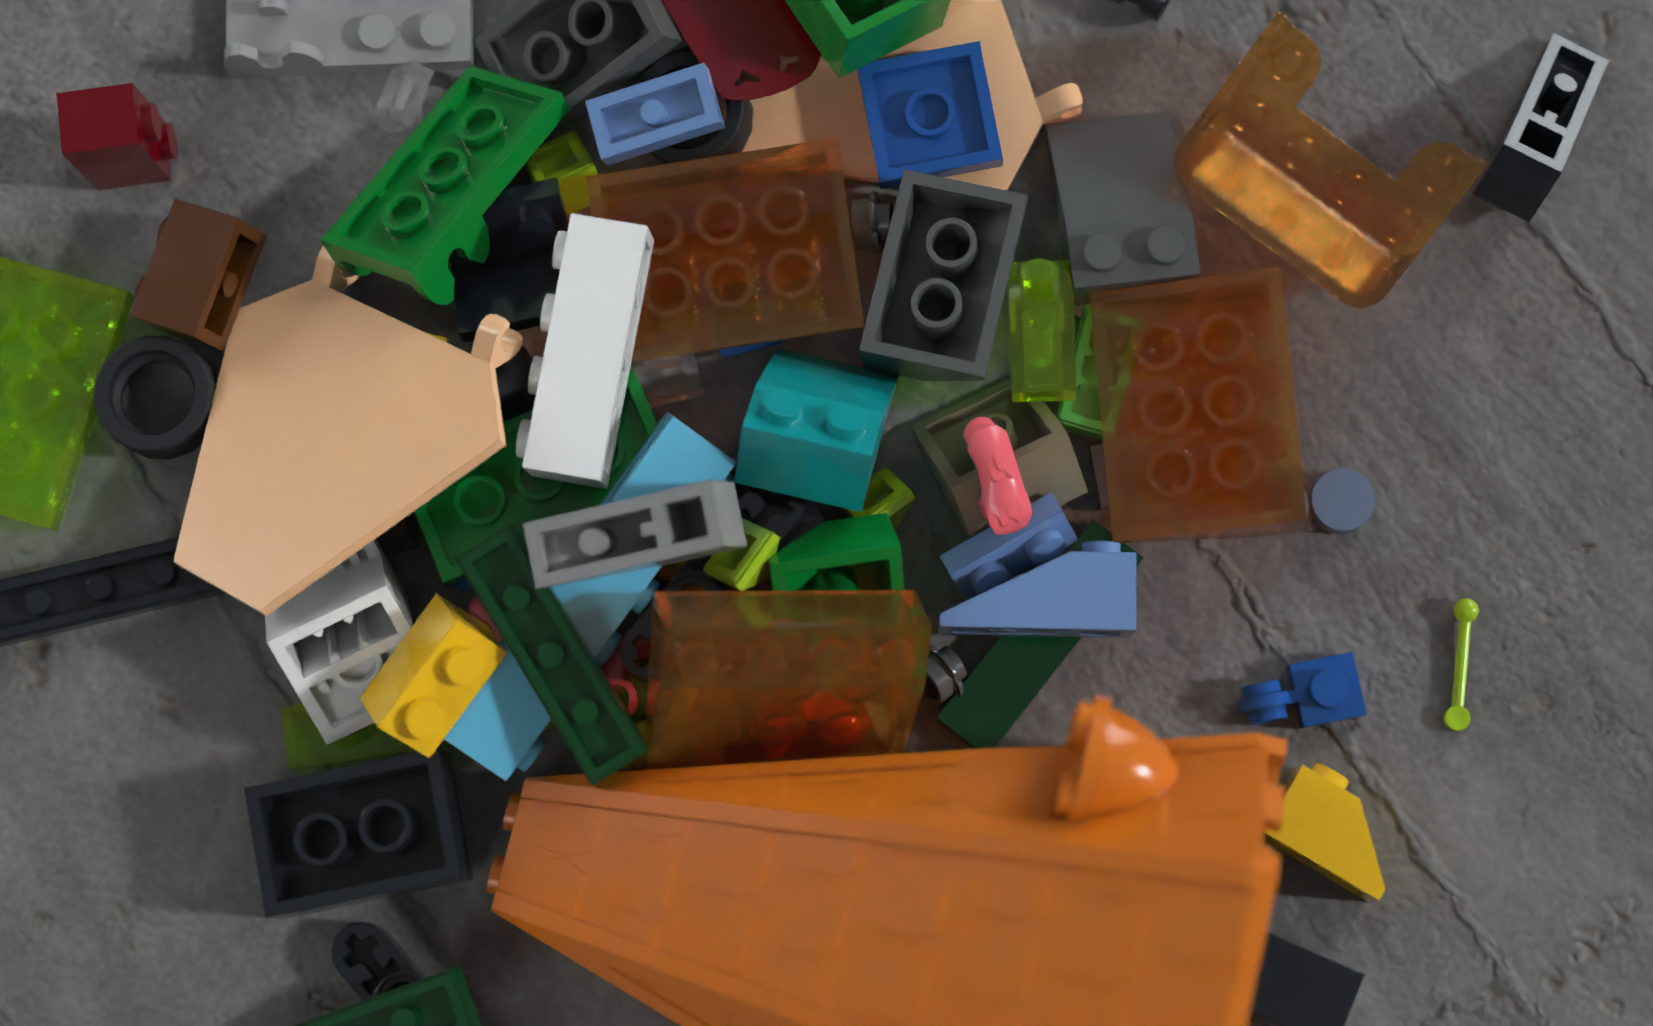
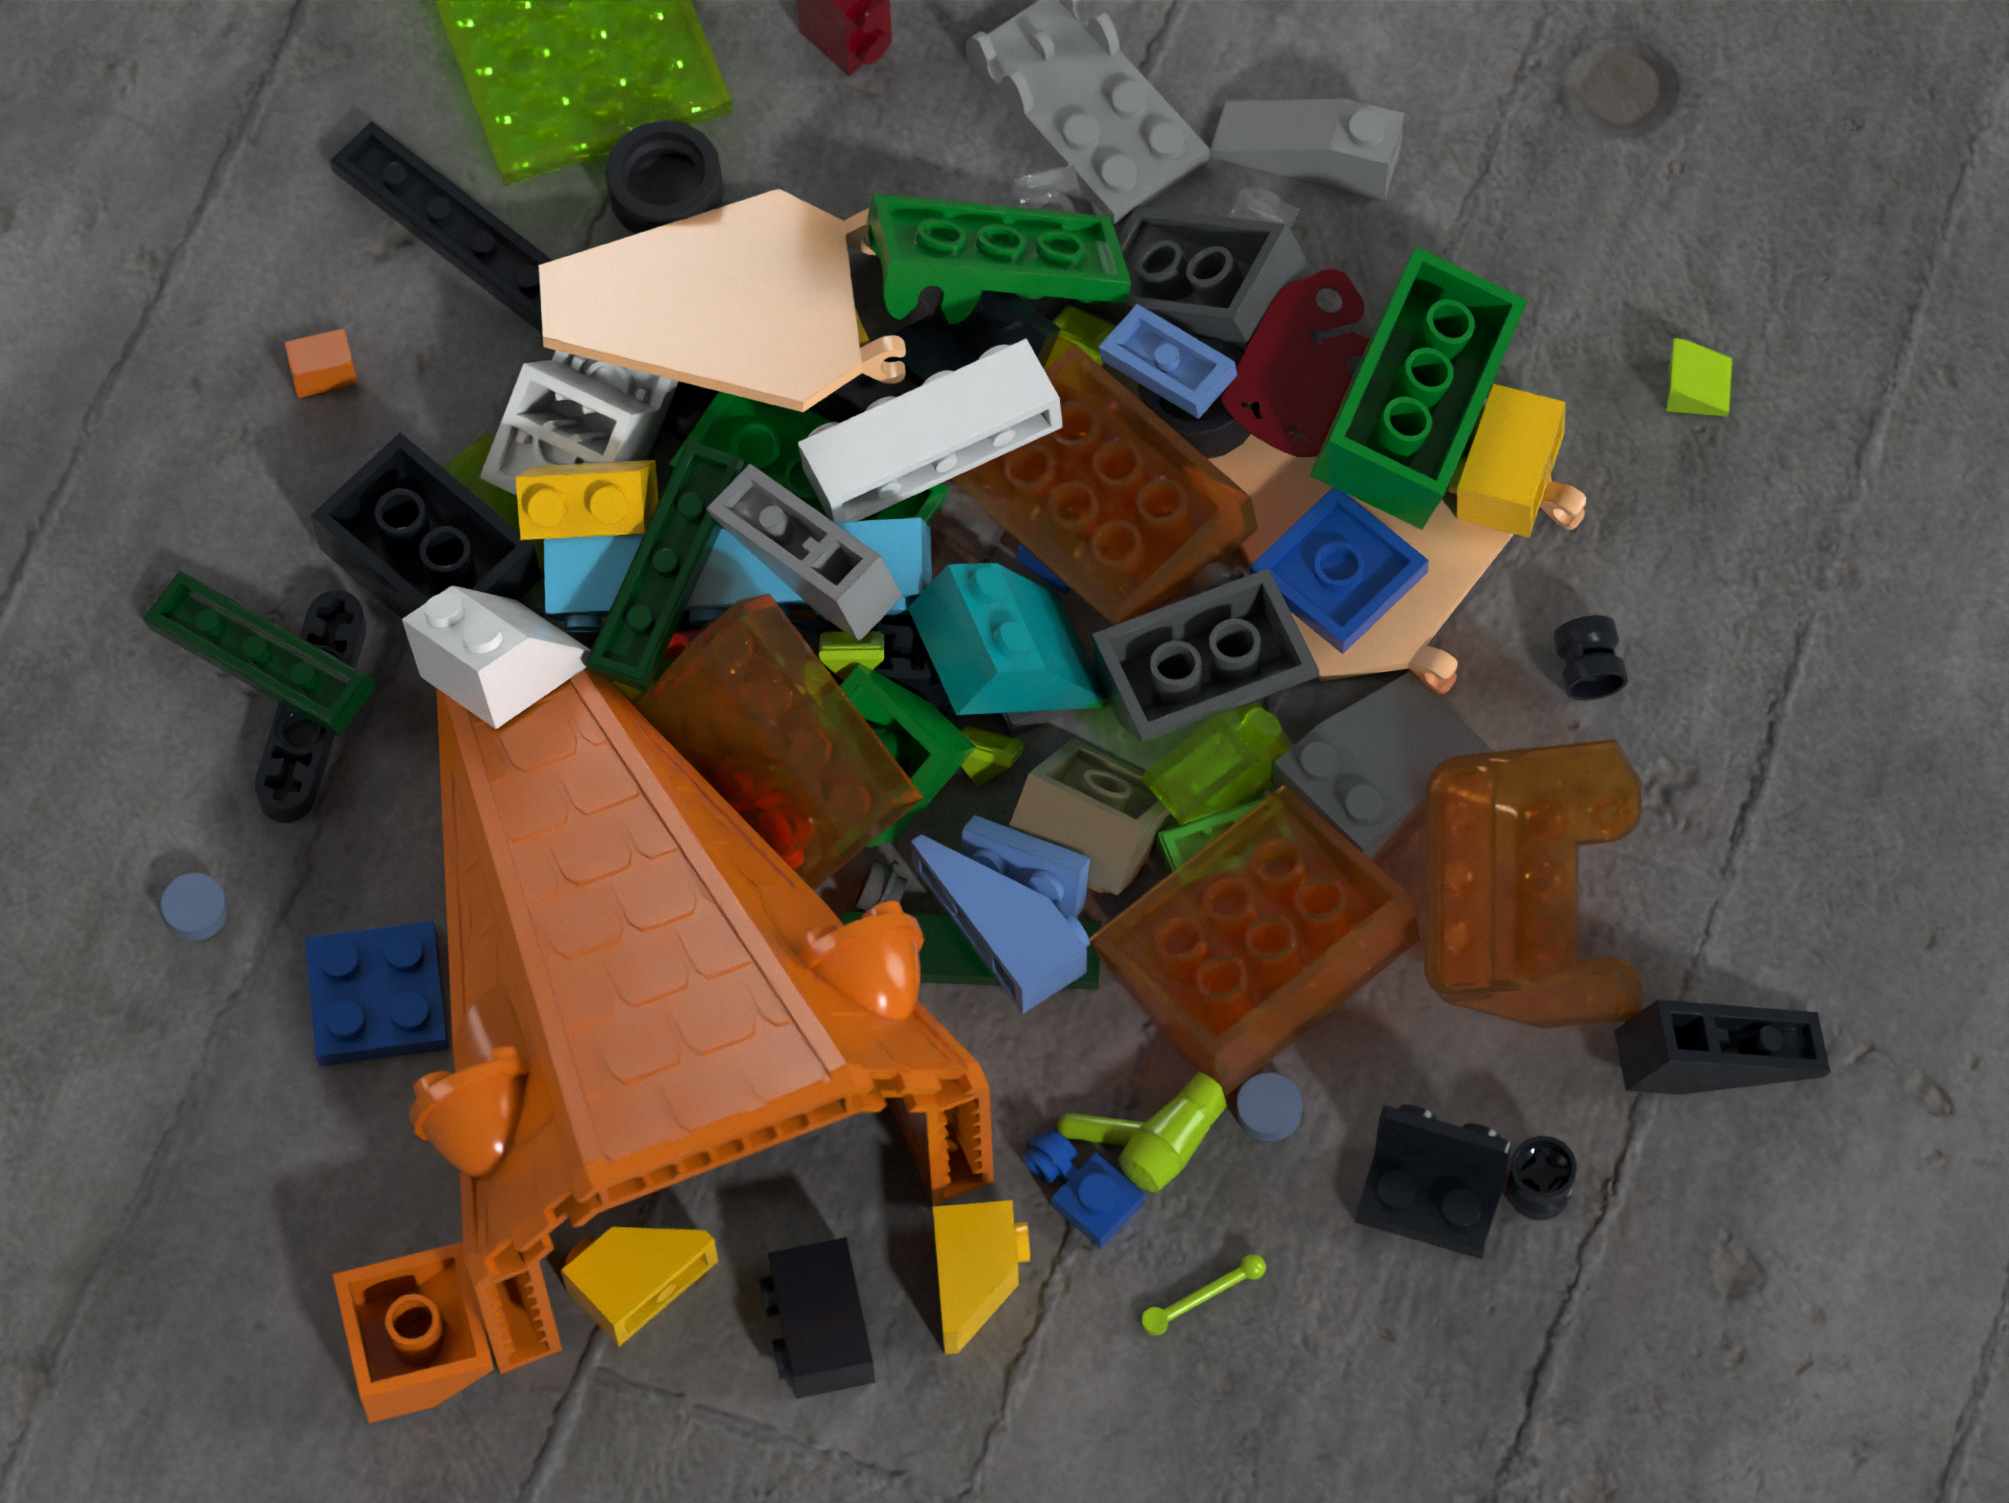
camera: 50 degrees right, 15 degrees down
(106, 799) = (321, 363): none -> orange slope
(198, 274) = (780, 134): reddish brown brick -> none
(518, 851) = (490, 652): none -> white slope
(1002, 489) = (1058, 807): coral piece -> none
(1319, 609) = (1163, 1144): none -> lime piece
(1502, 433) = (1434, 1180): none -> black bracket
(1564, 328) = (1543, 1163): none -> black wheel

